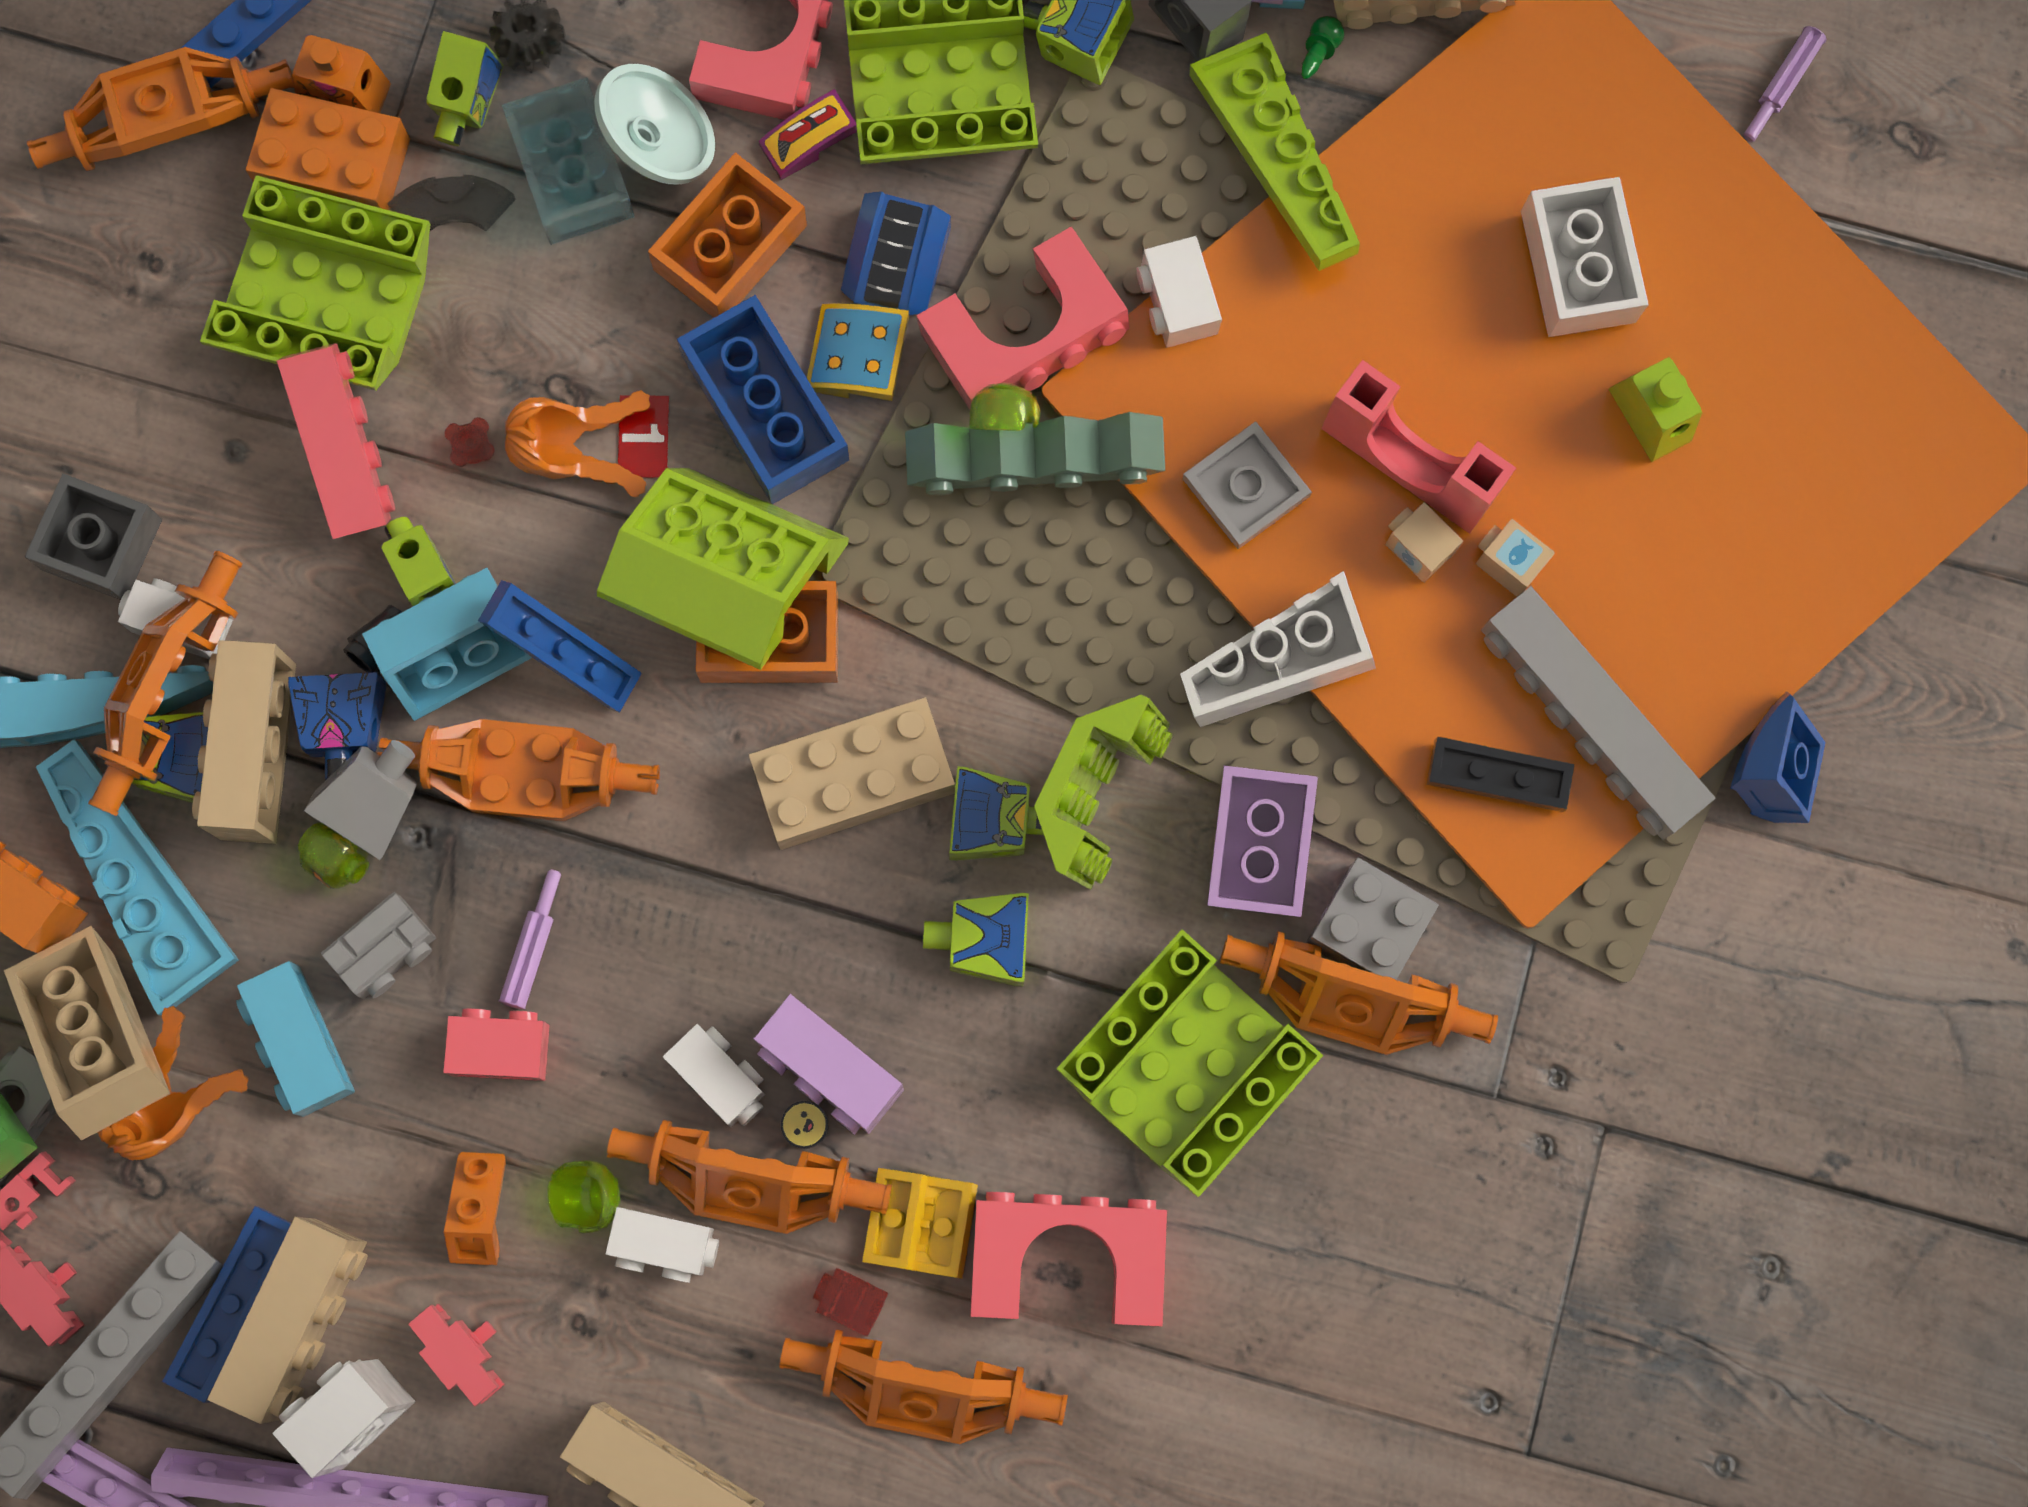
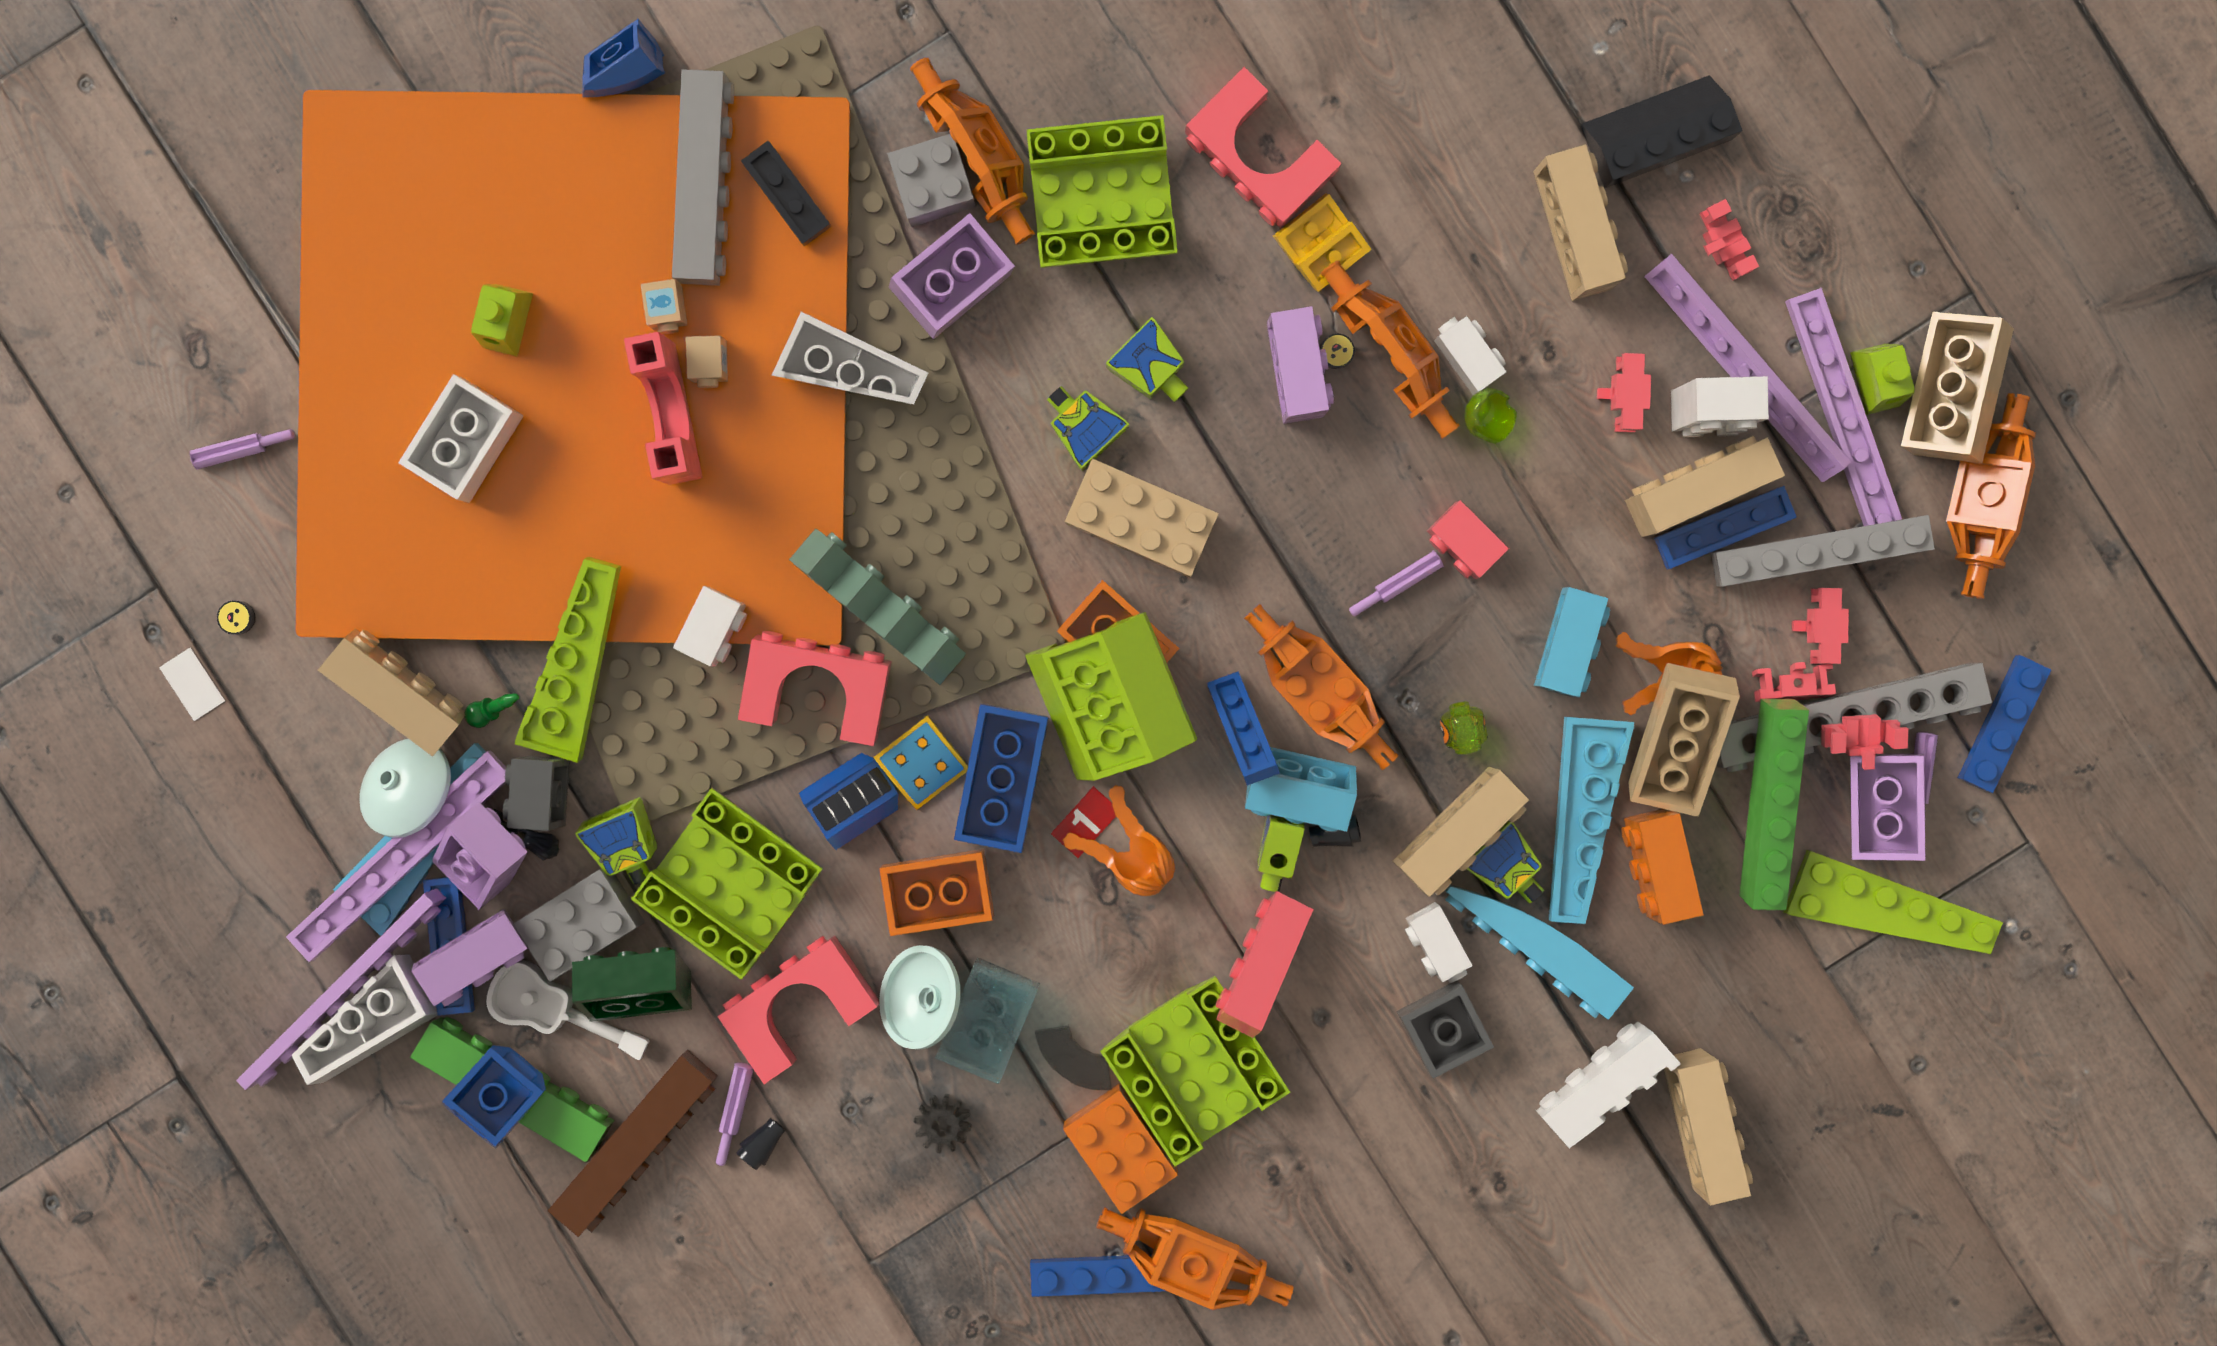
camera: 135 degrees left, 10 degrees up
(140, 683) = (1484, 914): orange plate -> none
(336, 73) = (1075, 1188): orange torso -> none
(337, 714) = (1397, 804): blue torso -> none
(366, 797) = (1421, 741): light grey torso -> none
(379, 947) = (1483, 653): light grey brick -> none
(462, 85) = (996, 1122): lime torso -> none
(473, 1209) = (1551, 464): orange bracket -> none
(478, 451) = (1196, 901): clear red plate -> none
(721, 1083) = (1363, 418): white brick -> none
(806, 133) = (835, 918): slope -> none
(850, 1300) = (1396, 232): clear red brick -> none
(921, 1399) = (1414, 153): orange plate -> none
(1003, 408) = (876, 640): clear neon green hair -> none
(1078, 772) = (1057, 362): lime slope -> none
(1246, 485) = (775, 481): light grey plate -> none

